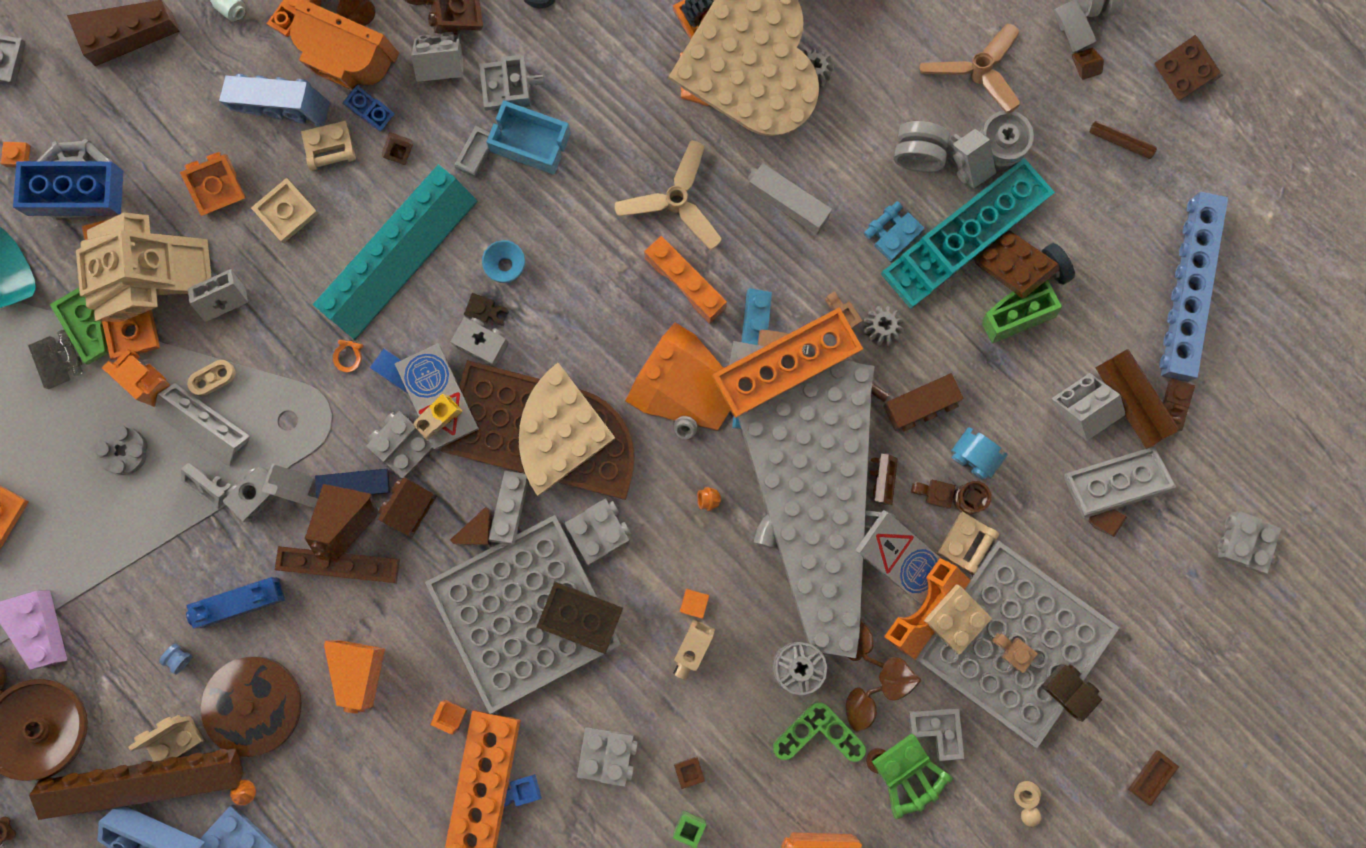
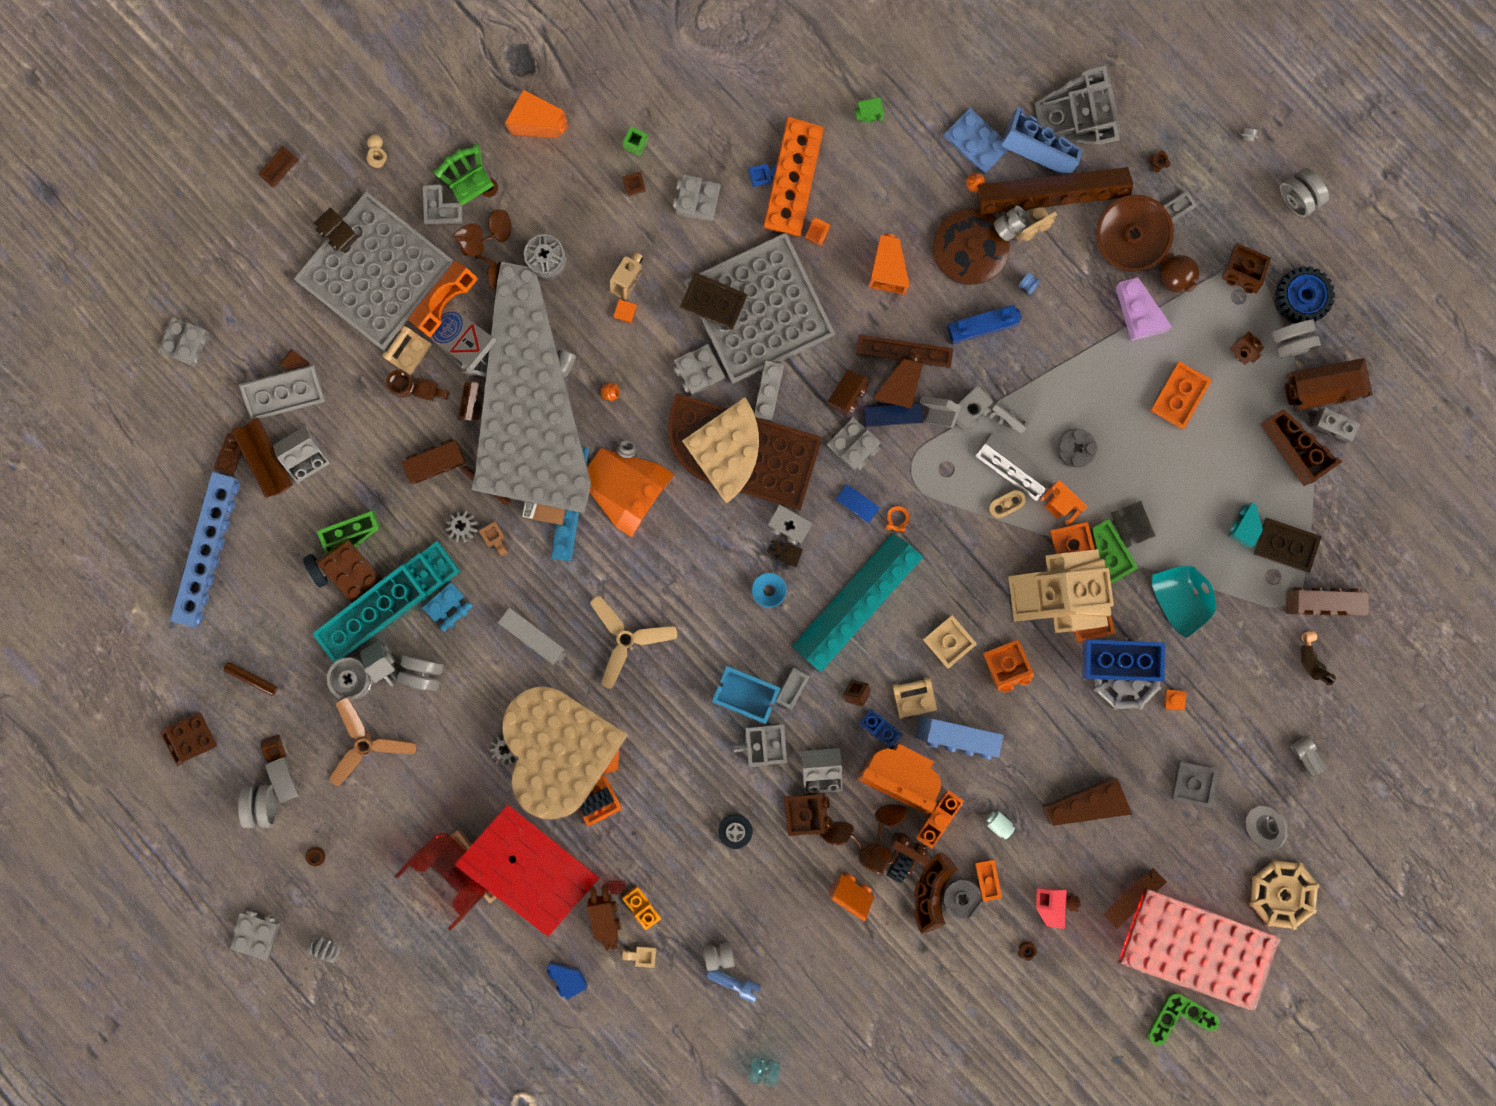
camera: 175 degrees right, 5 degrees up
(197, 733) = (1012, 223): none -> light grey wheel
(217, 295) = (1001, 569): light grey brick -> none
(425, 379) = (824, 480): light grey tile -> none
(437, 416) = (822, 460): leg -> none
(476, 531) = (794, 372): reddish brown slope -> none
(686, 278) = (621, 569): orange arch -> none
(783, 378) = (528, 485): orange plate -> none
(824, 726) = (529, 215): bright green beam -> none
(958, 619) = (419, 288): tan plate -> none
(978, 453) = (393, 417): dark azure brick -> none
(1016, 652) = (376, 261): medium nougat plate -> none

